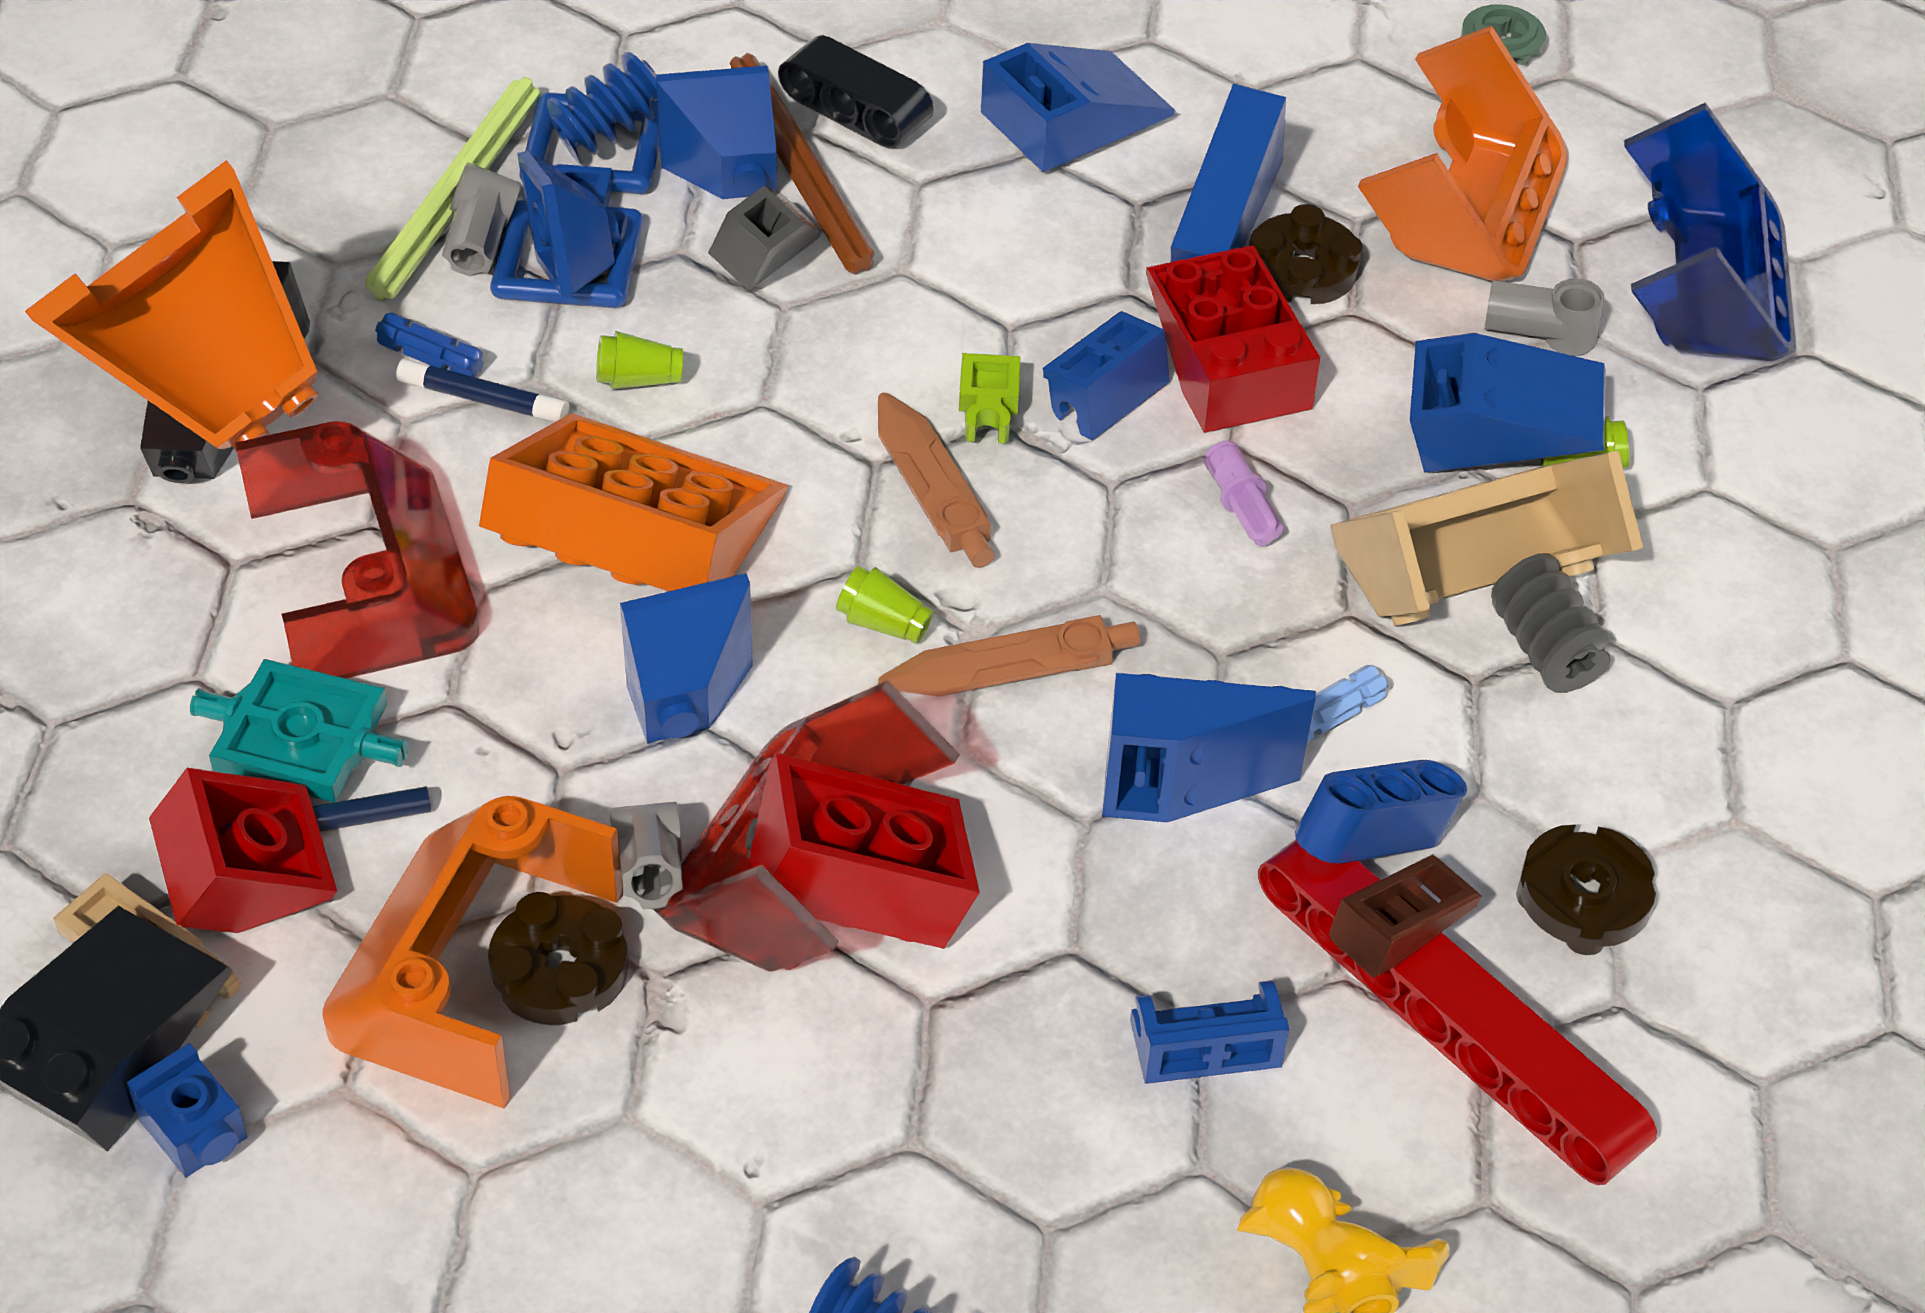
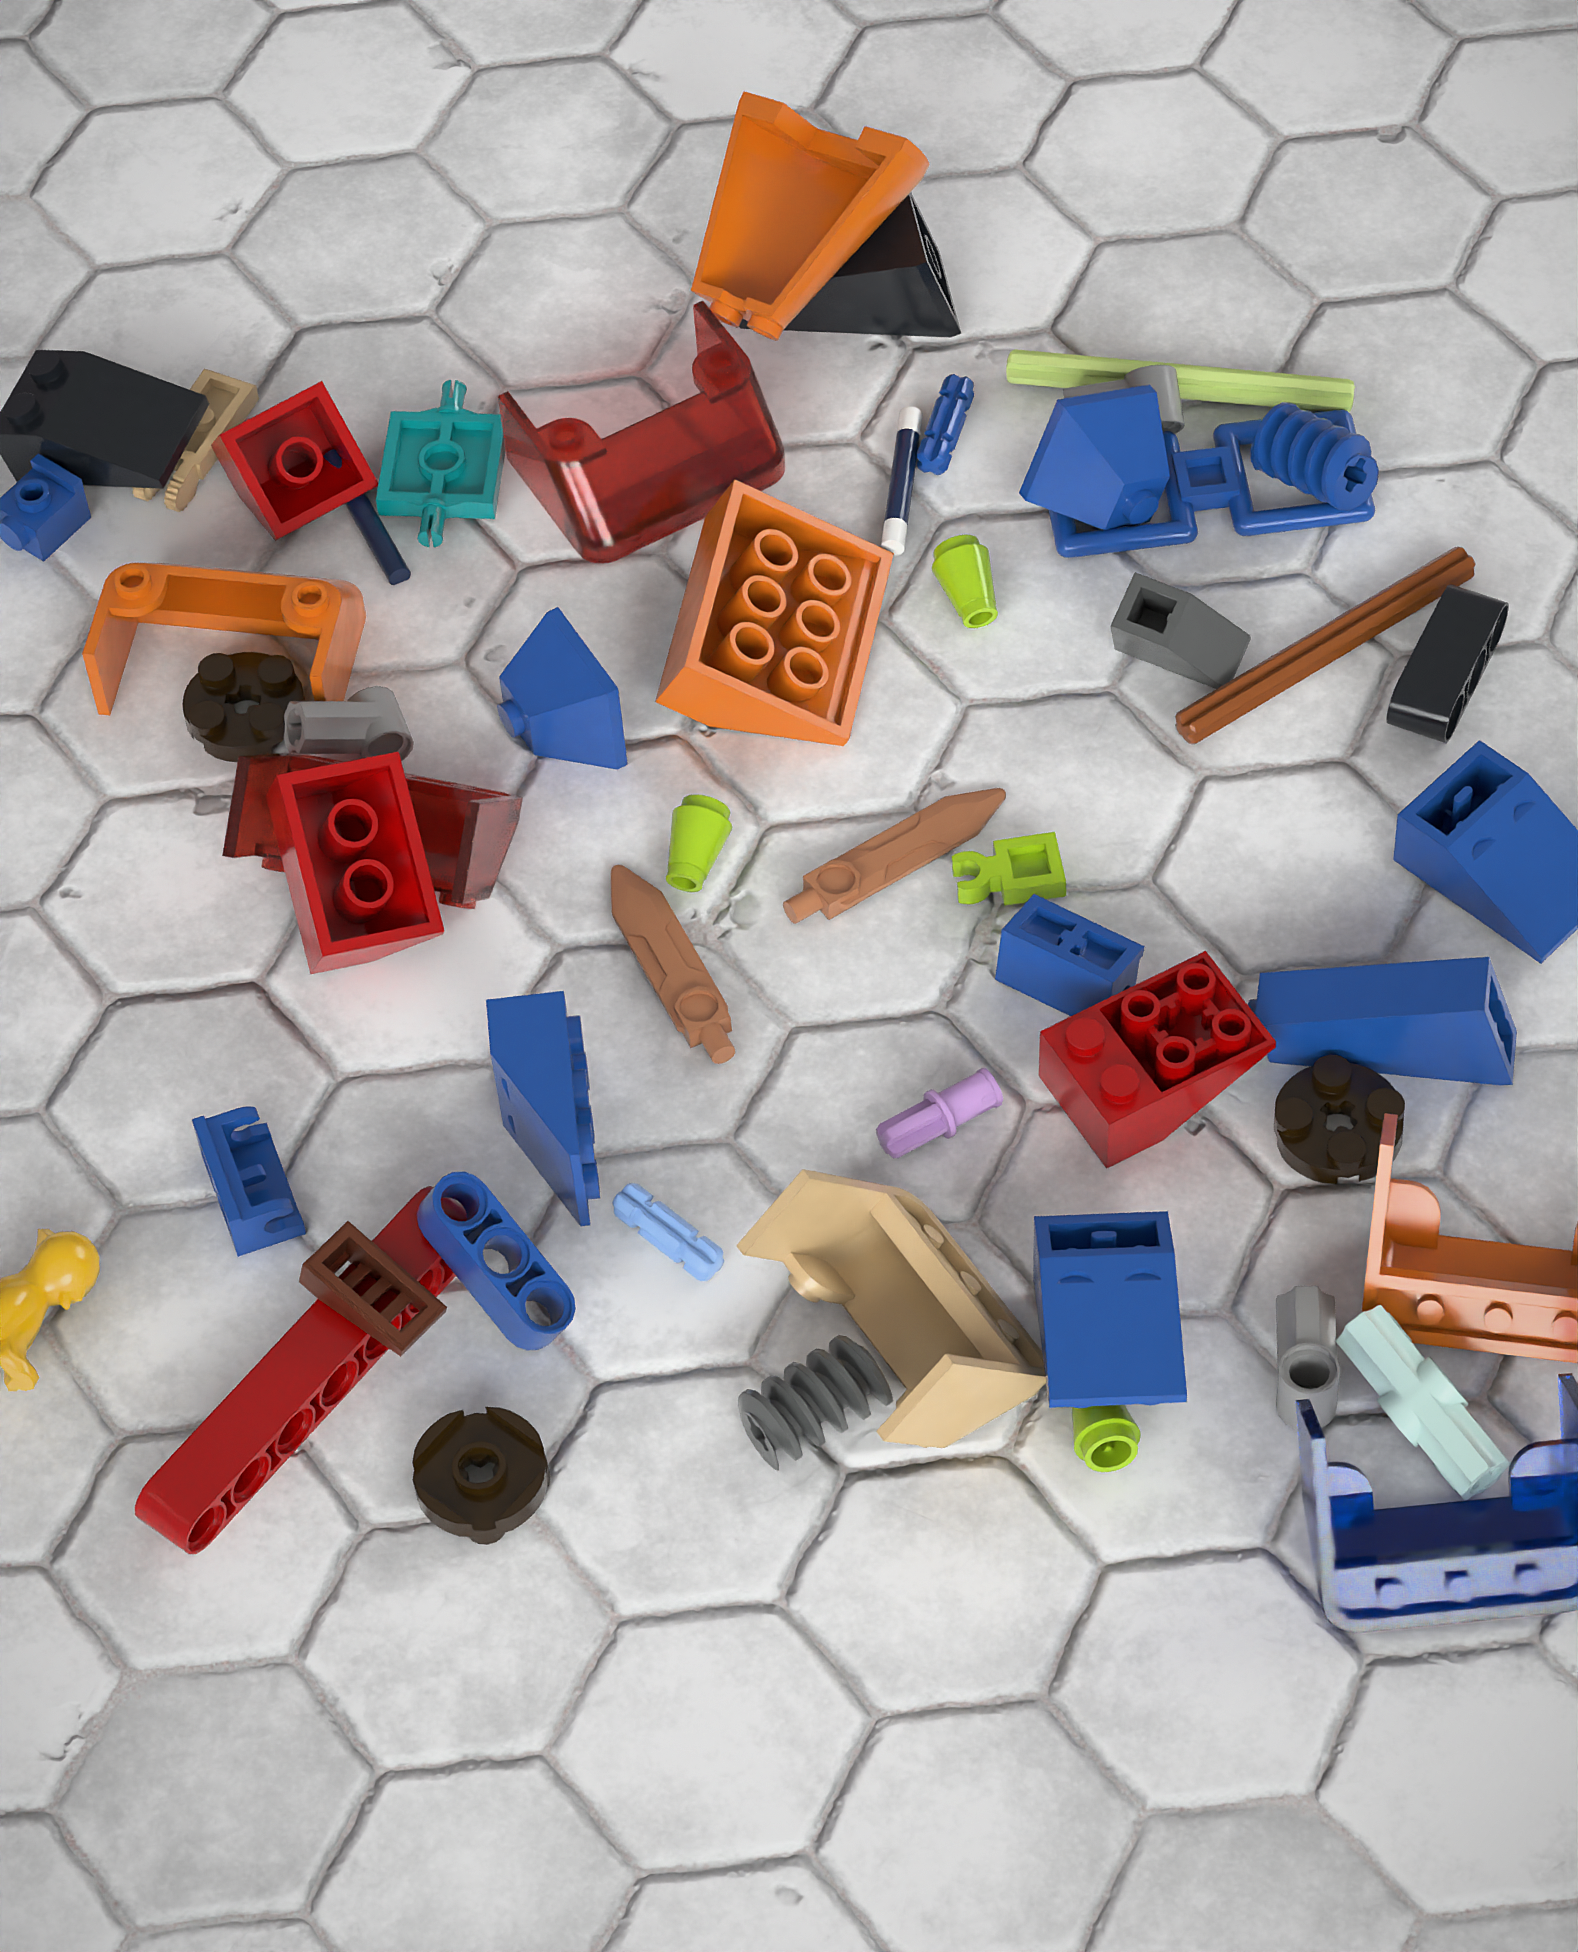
camera: 85 degrees right, 5 degrees up
(718, 129) = (1304, 560): blue slope -> none
(1602, 252) = (1422, 1402): none -> light aqua piece

